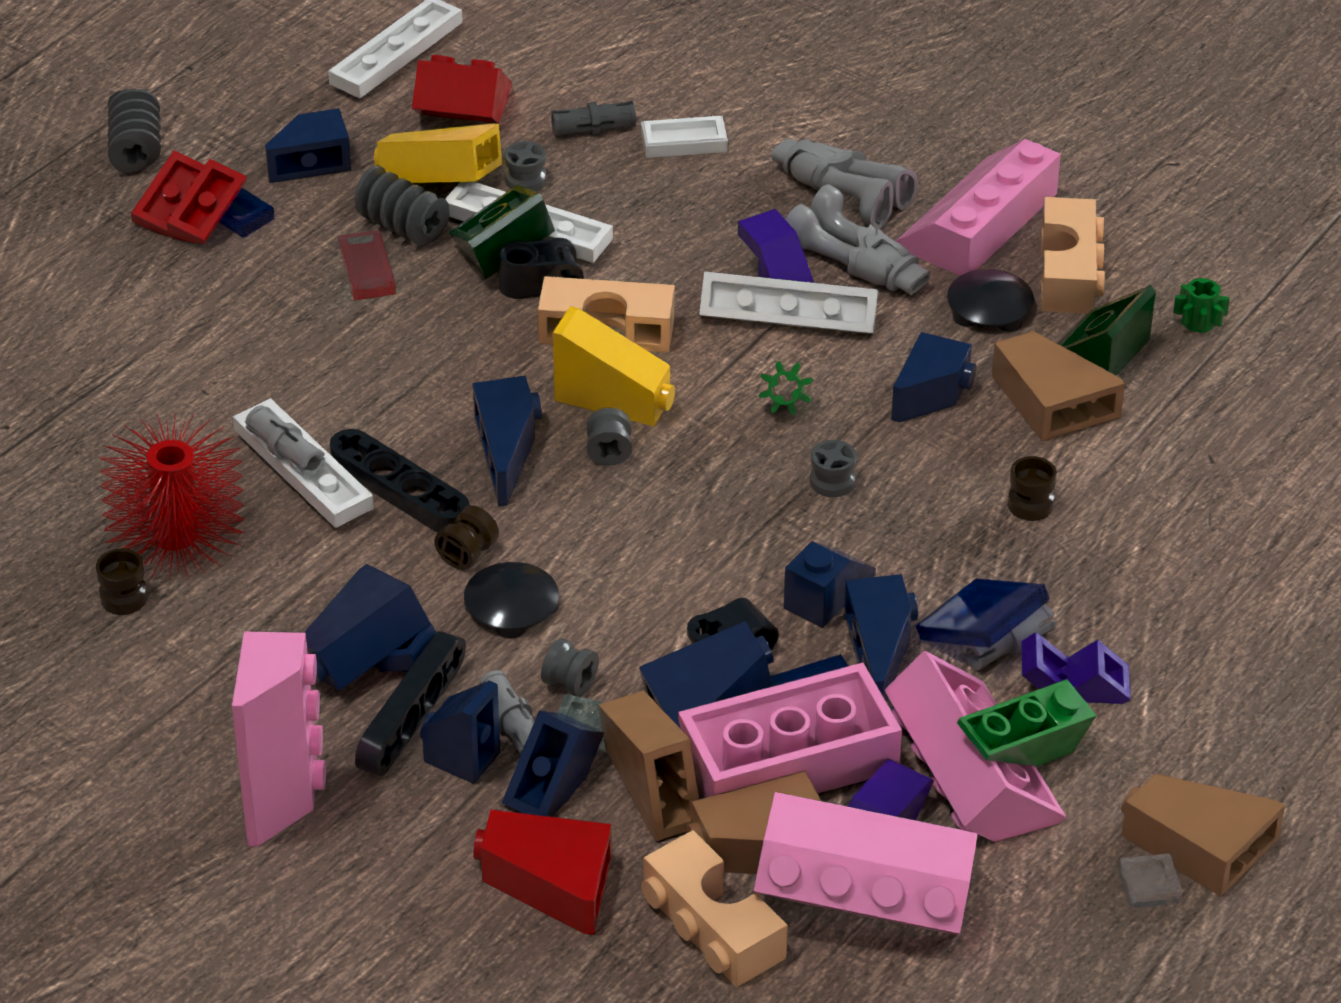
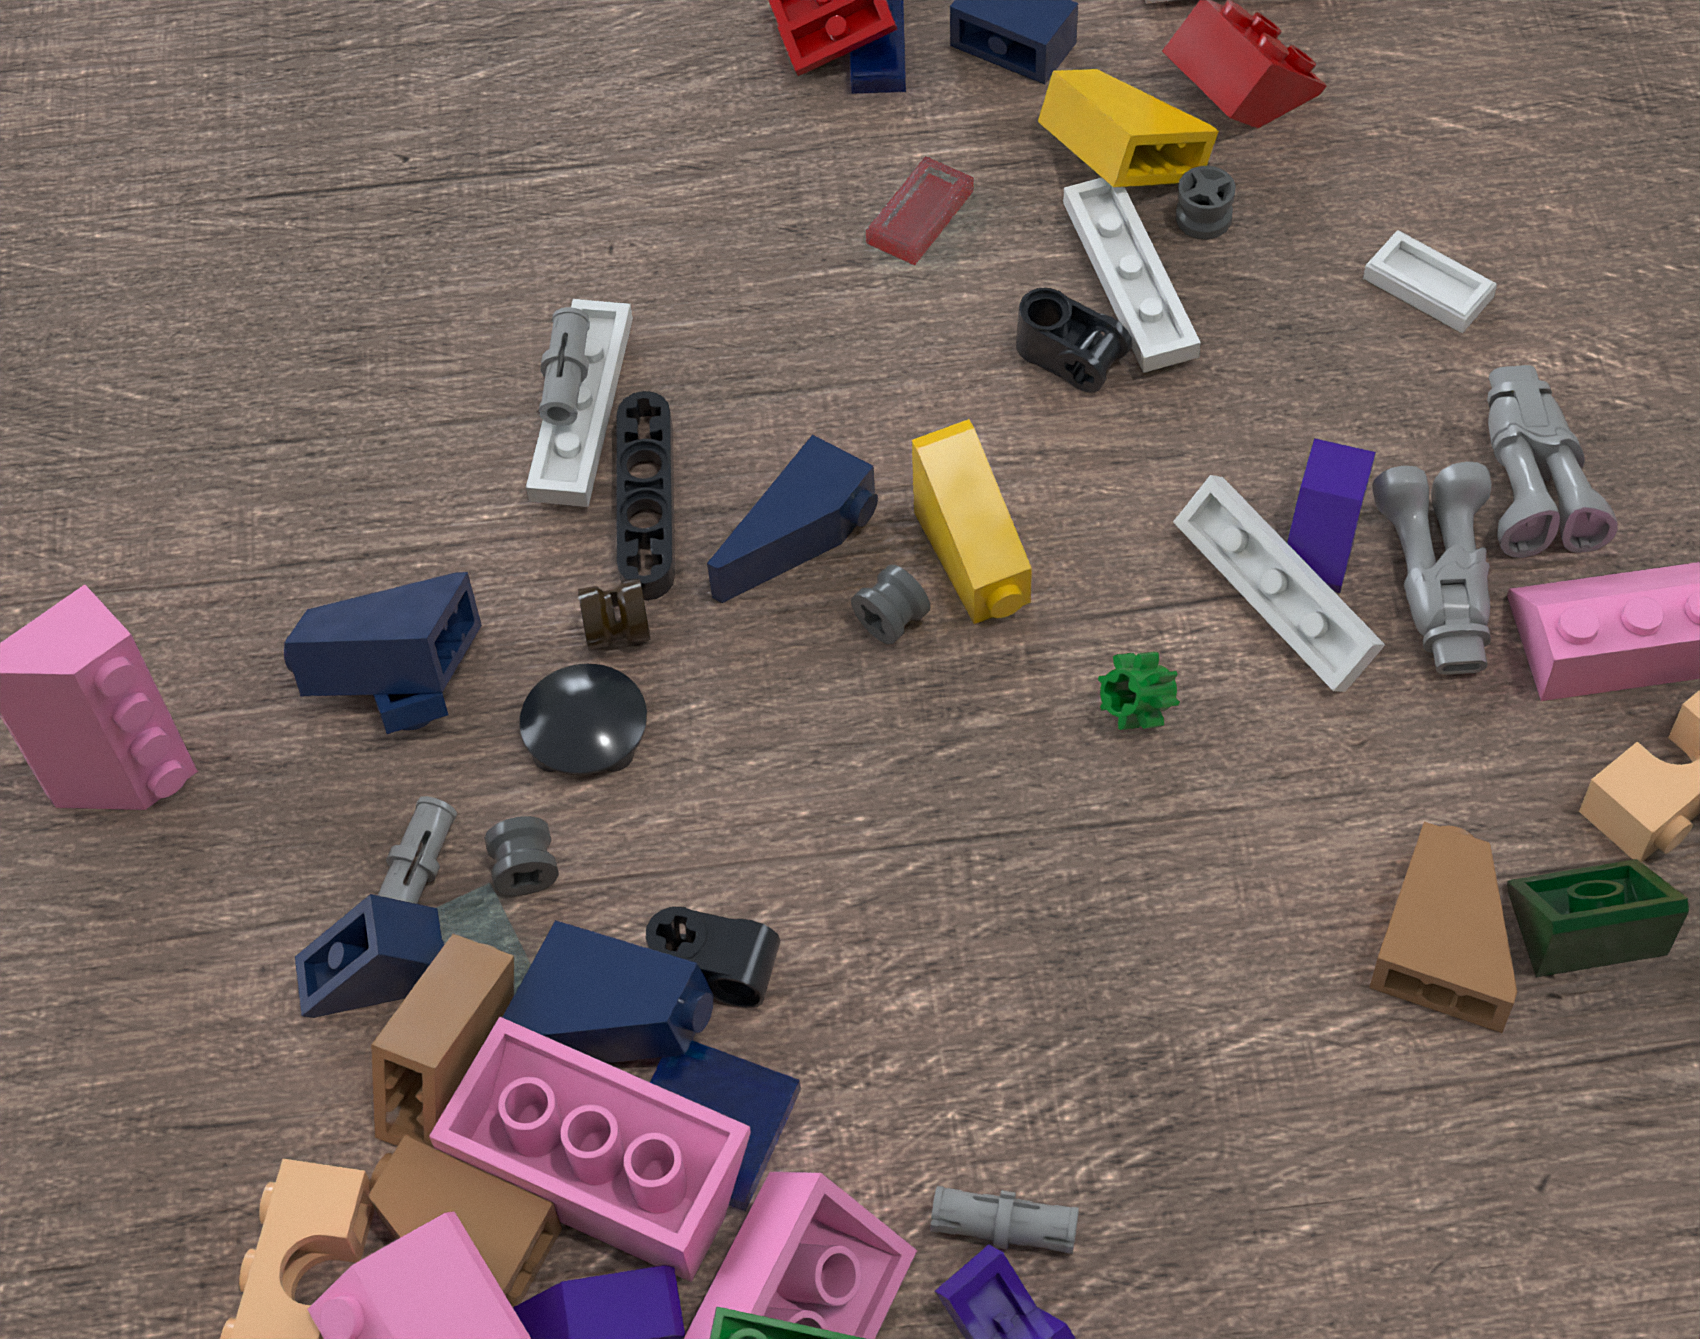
camera: 50 degrees right, 15 degrees up
(121, 581) = (270, 411): dark brown wheel -> none
(172, 495) = (389, 351): red piece -> none
(401, 206) = (1015, 163): dark grey piece -> none
(410, 703) = (339, 767): black beam -> none
(464, 732) = (323, 852): dark blue slope -> none
(510, 218) = (1083, 262): dark green slope -> none
(547, 864) = (224, 1081): red slope -> none
(593, 118) = (1353, 190): dark grey pin -> none
(636, 308) = (1041, 414): light nougat arch -> none
(817, 582) = (899, 970): dark blue slope -> none
(833, 468) = (1078, 818): dark grey wheel -> none
(879, 624) = (863, 1094): dark blue slope -> none
(932, 377) = (1318, 804): dark blue slope -> none
(982, 612) = (994, 1168): clear blue tile -> none
(990, 299) = (1526, 751): black dish -> none
(1032, 488) = (1256, 1032): dark brown wheel -> none

